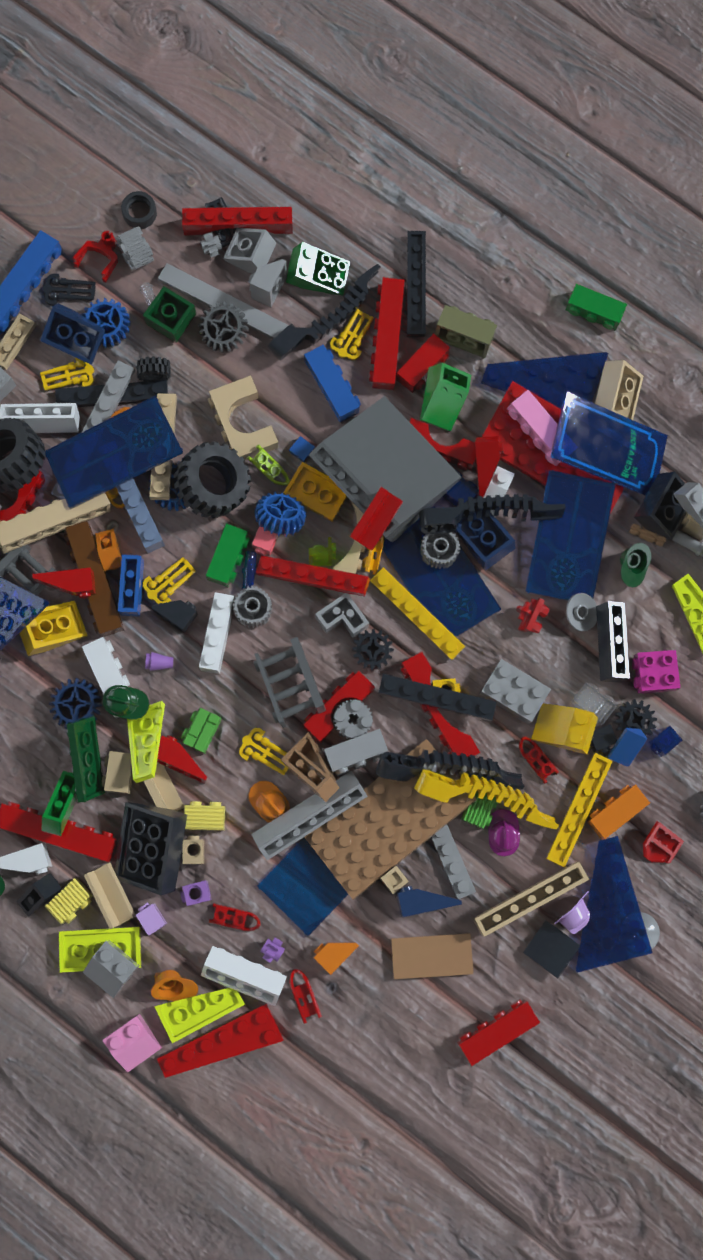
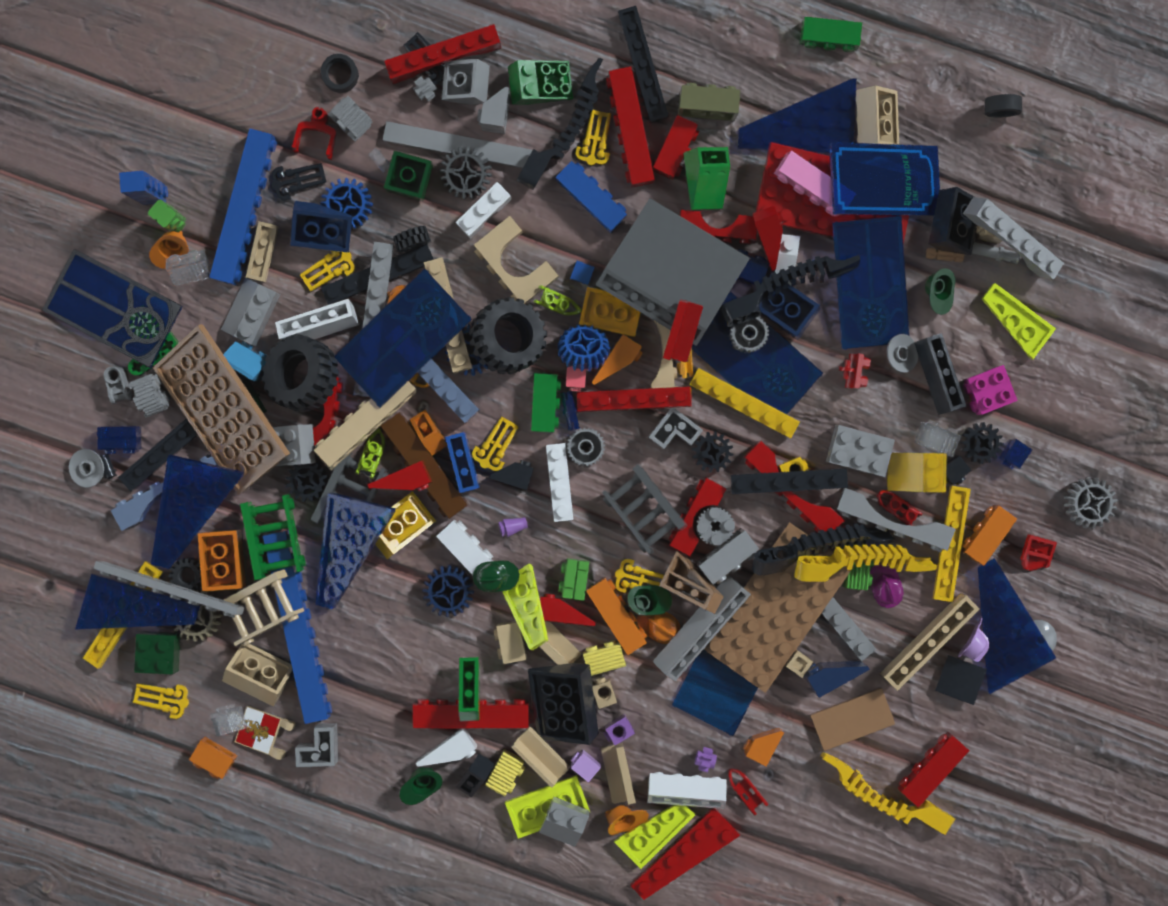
camera: 10 degrees left, 10 degrees up
(50, 548) = (372, 448): none -> lime piece
(85, 758) = (477, 641): dark green plate -> none
(132, 1043) = (603, 879): bright pink slope -> none
(181, 939) = (618, 774): none -> tan panel
(216, 369) = (483, 209): none -> white arch
(229, 778) = (616, 616): none -> orange brick
(238, 919) = (665, 740): red piece -> none
(266, 772) = (649, 600): none -> dark green piece
(312, 534) = (620, 357): none -> orange slope
(322, 556) = (633, 377): clear neon green bracket -> none
(478, 1075) = (854, 783): none -> yellow piece
(564, 792) = (932, 533): none -> light grey arch
(627, 746) = (982, 471): blue slope -> none

